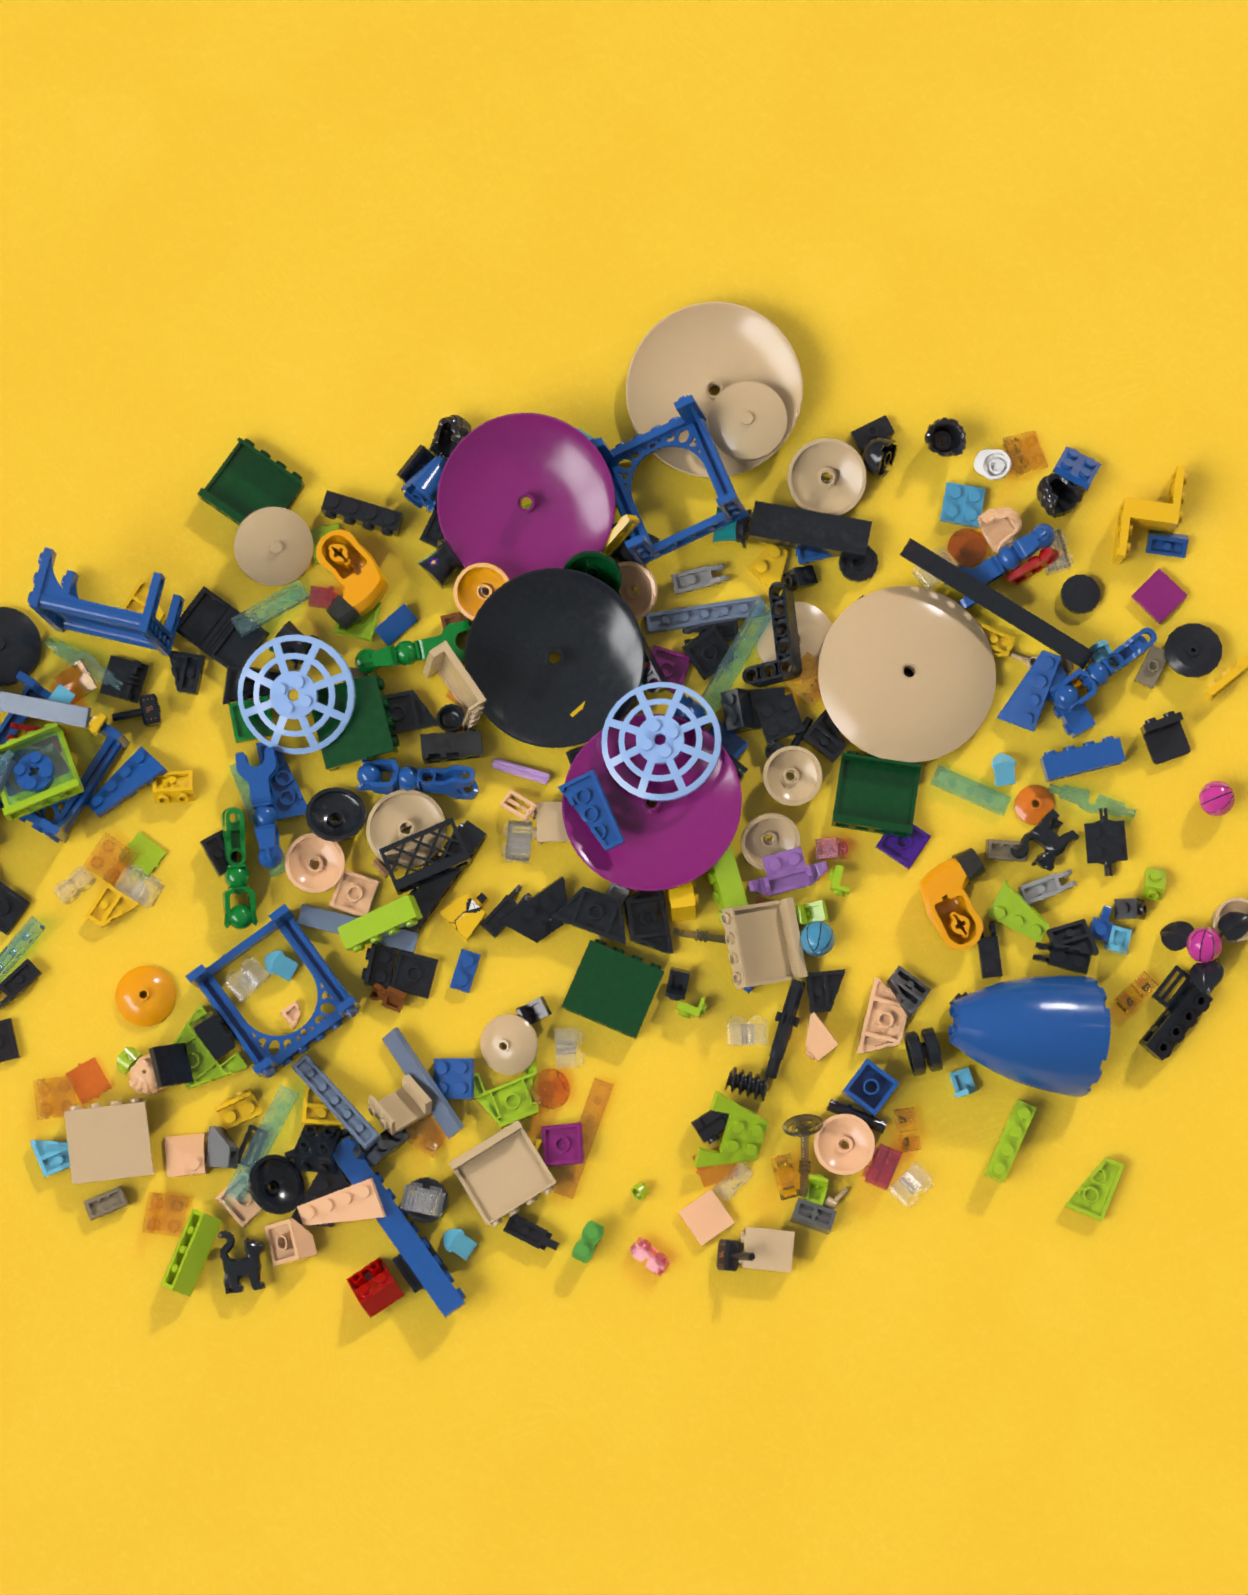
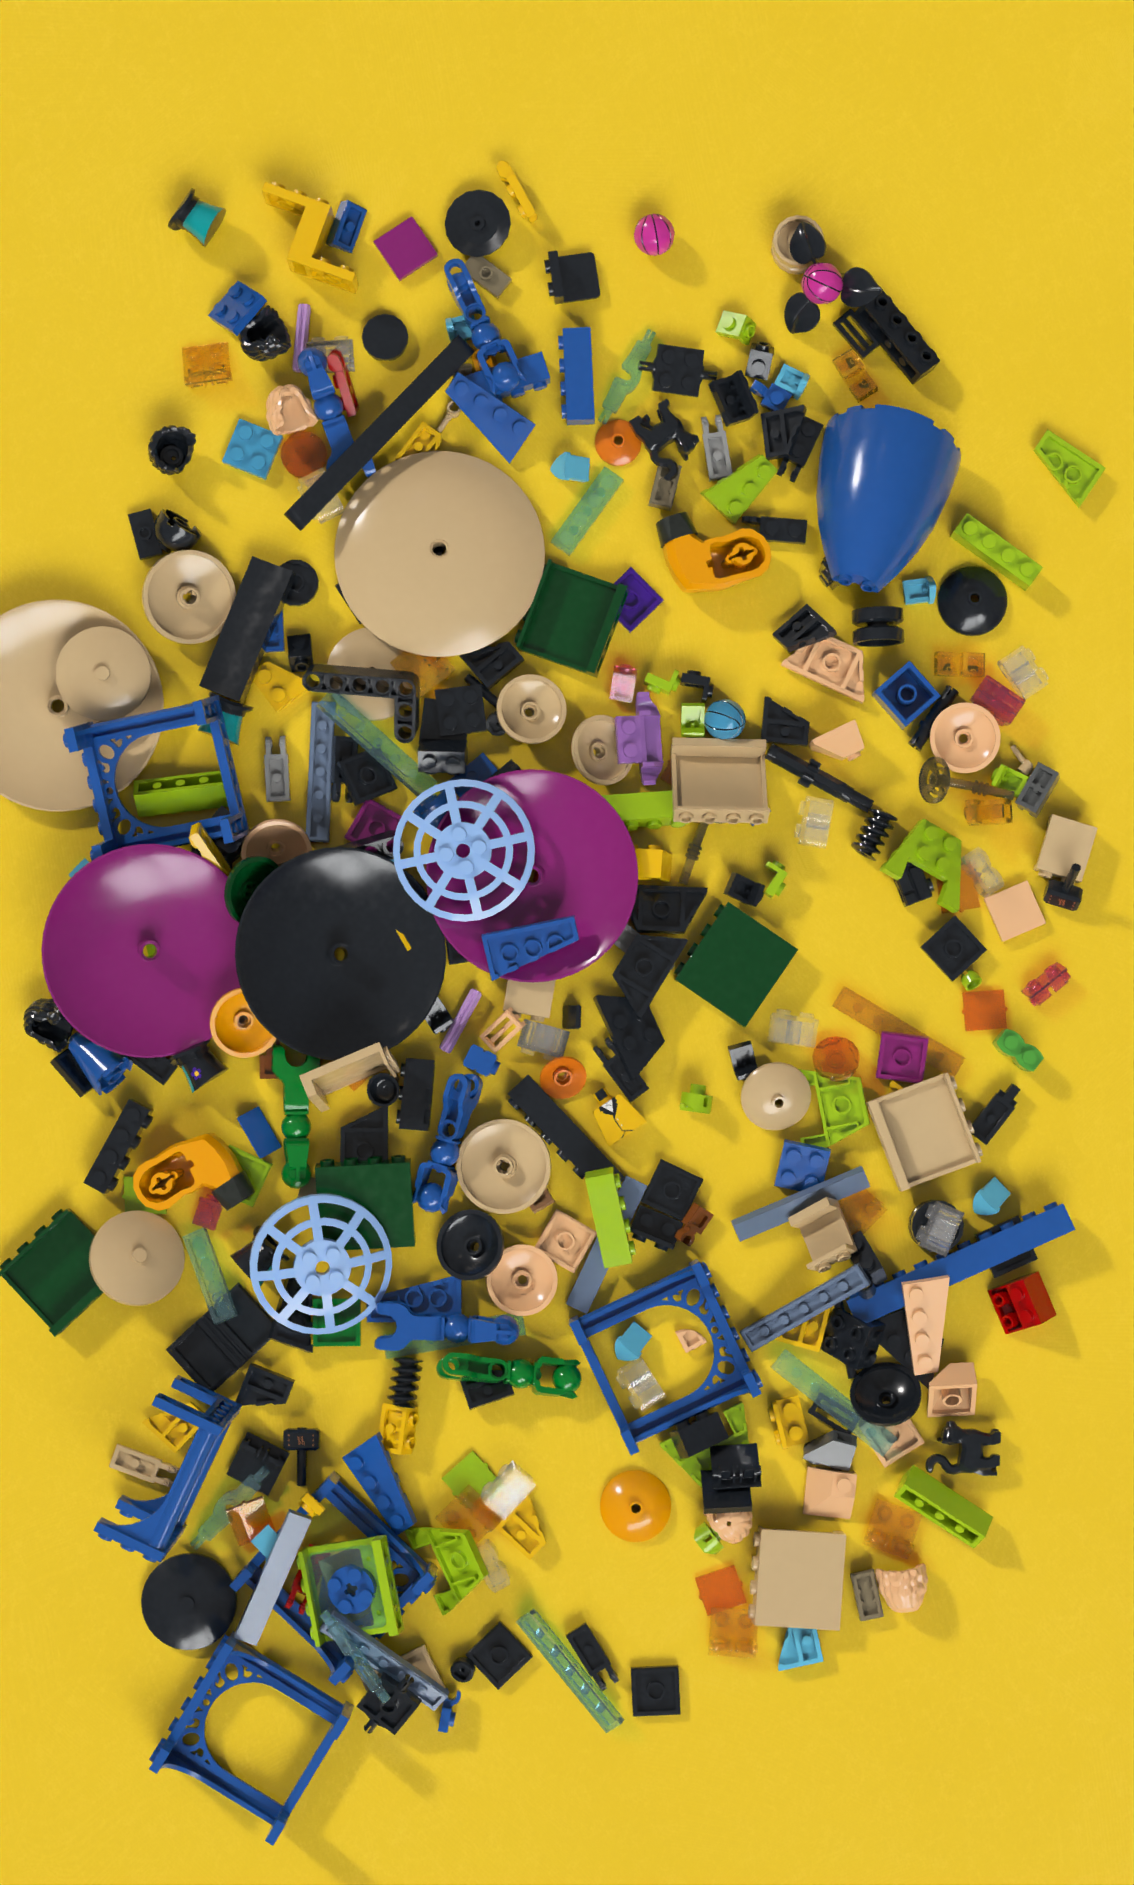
camera: 80 degrees left, 5 degrees up
(73, 856) = (457, 1557): none -> lime wing
(106, 581) = (141, 1465): none -> tan hinge
(116, 1232) = (903, 1588): none -> light nougat hair
(193, 1069) = (735, 1466): none -> black hinge
(213, 784) = (404, 1382): none -> black piece
(430, 872) = (561, 1147): black fence -> none
(465, 971) = (680, 1130): blue plate -> none
(483, 865) = (567, 1084): none -> orange dish
(489, 793) = (481, 1061): none -> blue brick
(492, 978) = (696, 1100): none -> lime piece
(520, 751) = (439, 1017): none -> black bracket
(542, 862) = (571, 1017): none -> black slope
(617, 1208) = (984, 1010): none -> clear orange piece
(661, 501) = (179, 793): none -> lime brick
(663, 1170) = (953, 948): none -> black plate
(846, 907) = (695, 680): none -> black bracket
(949, 1132) = (967, 616): none -> black dish
(992, 464) = (212, 403): white hat -> none
(1072, 525) = (302, 333): none -> lavender axle
(1091, 893) = (734, 399): none -> black bracket
(1144, 420) = (197, 218): none -> hat

